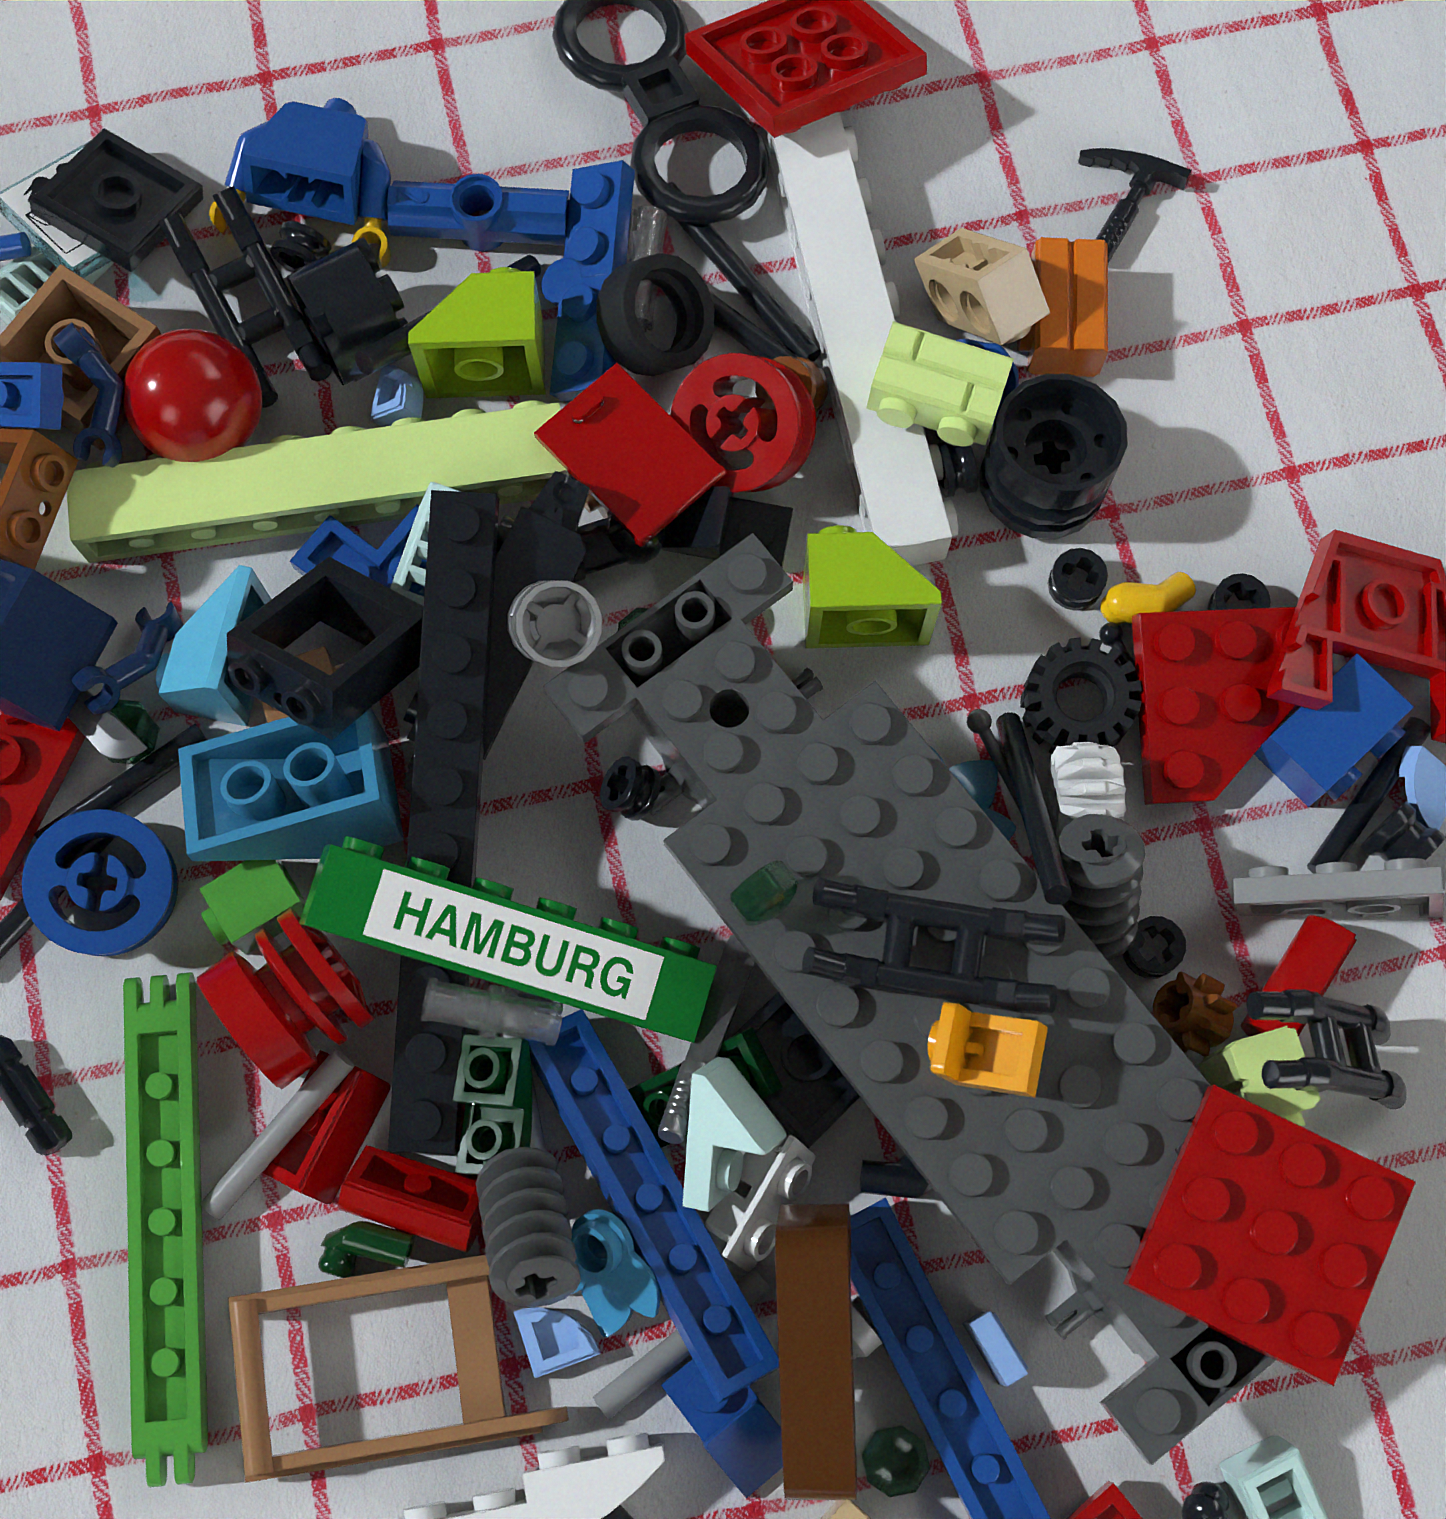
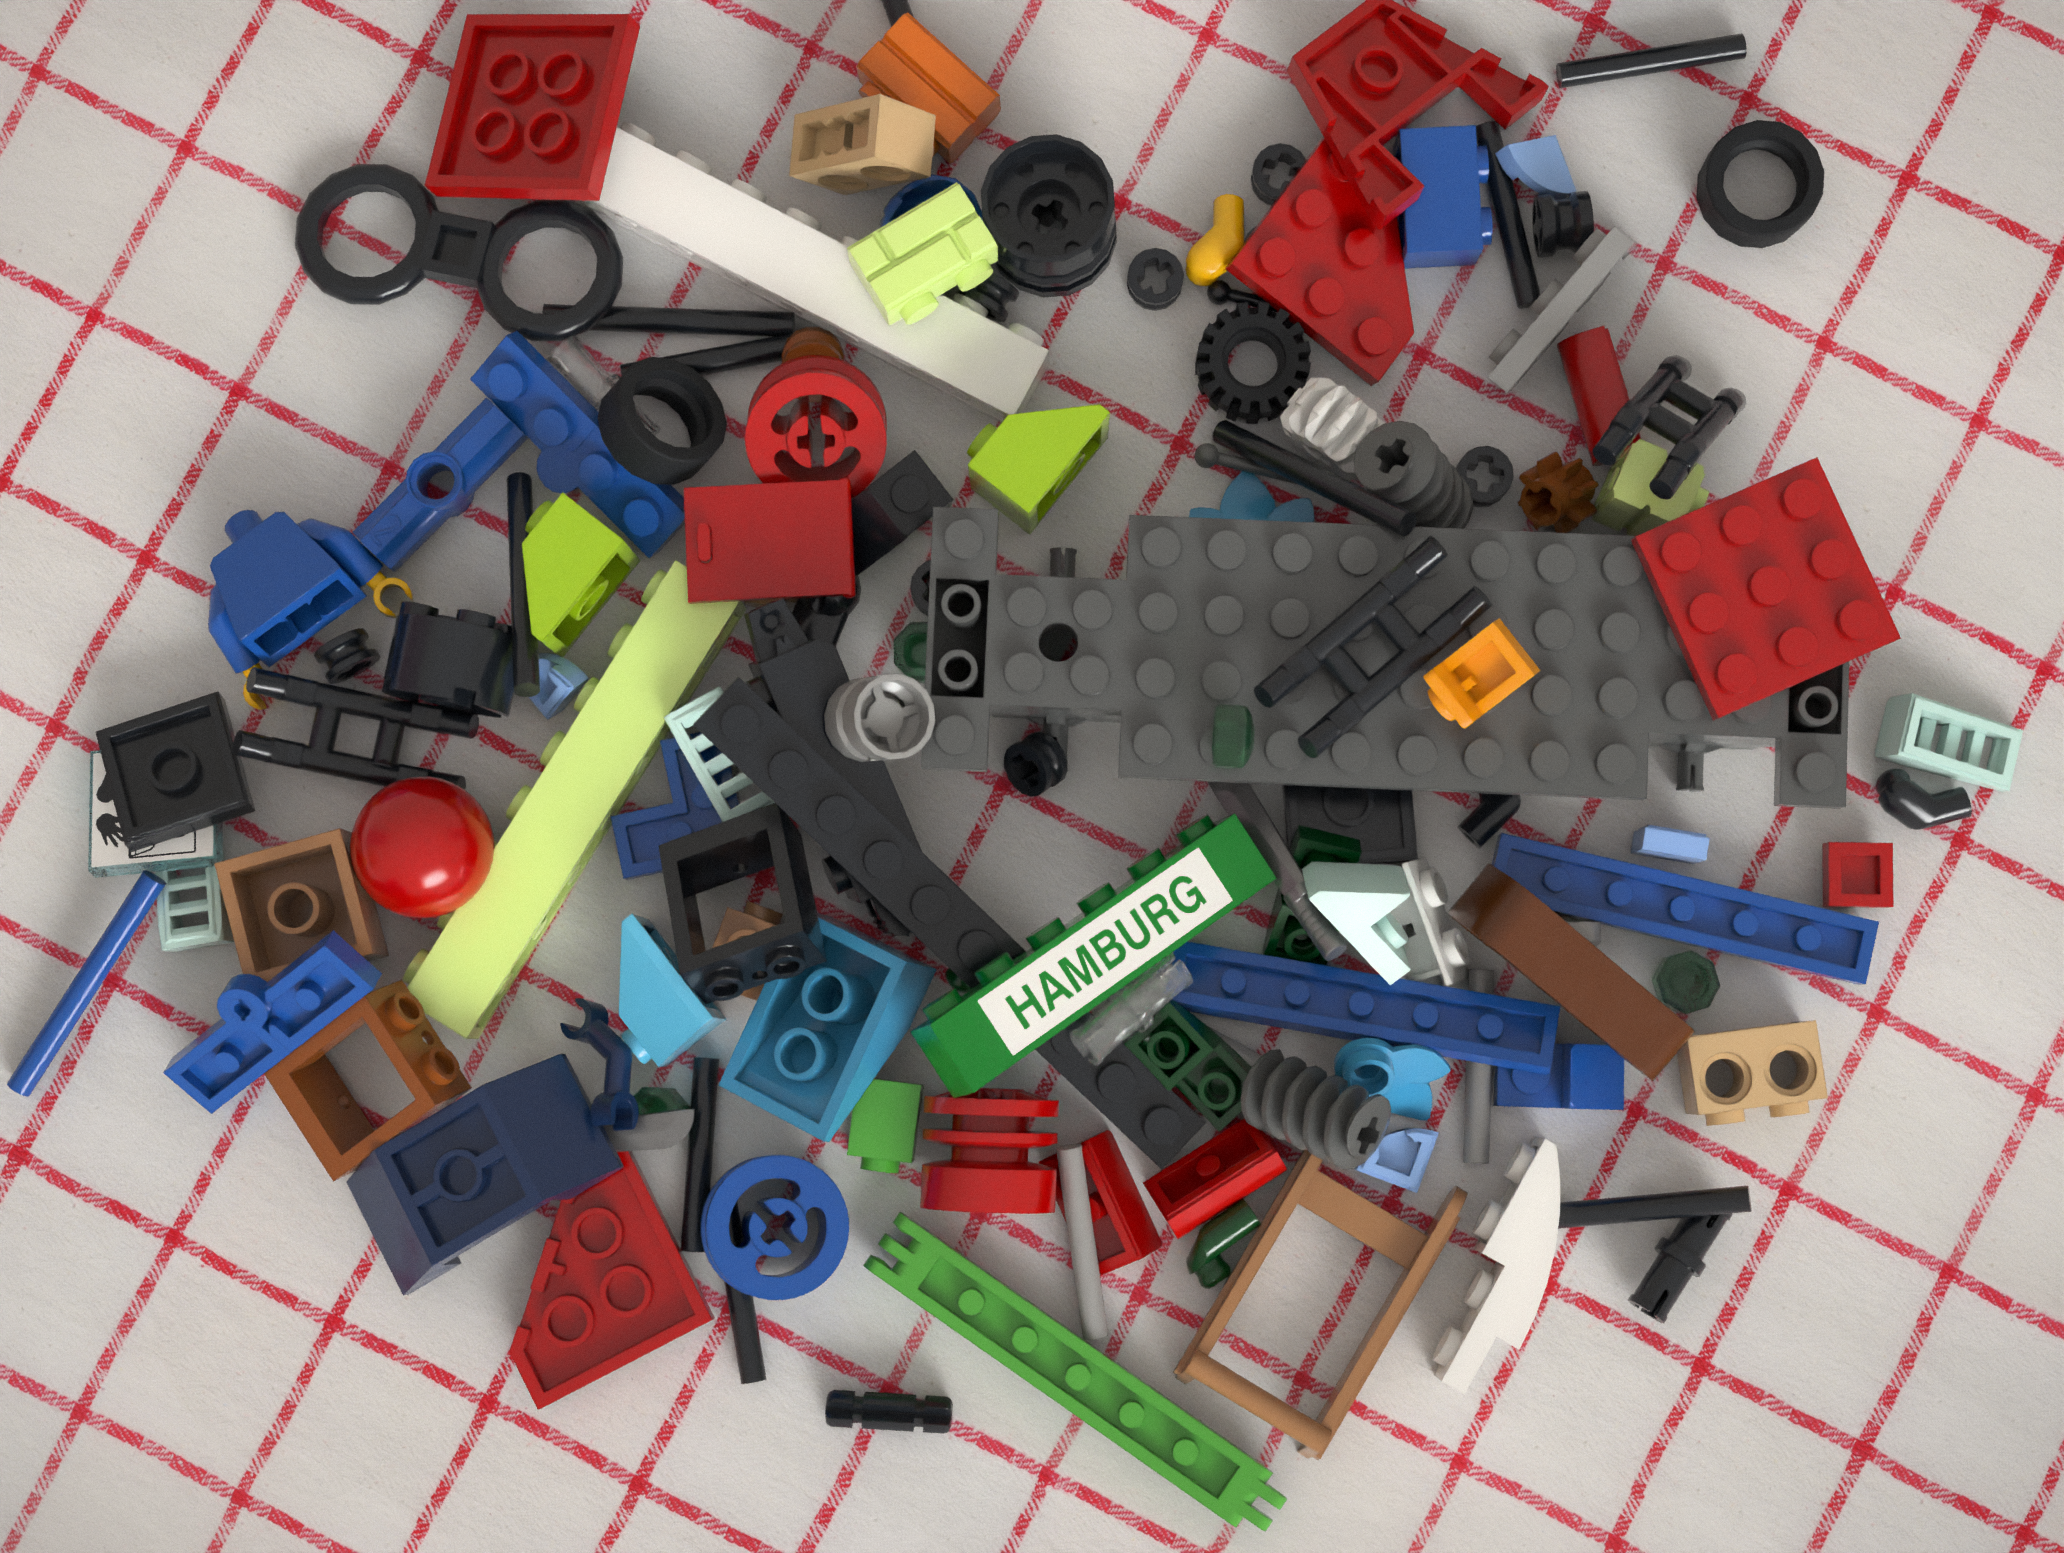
camera: 45 degrees left, 10 degrees up
(85, 353) = (322, 904): dark blue arm -> none

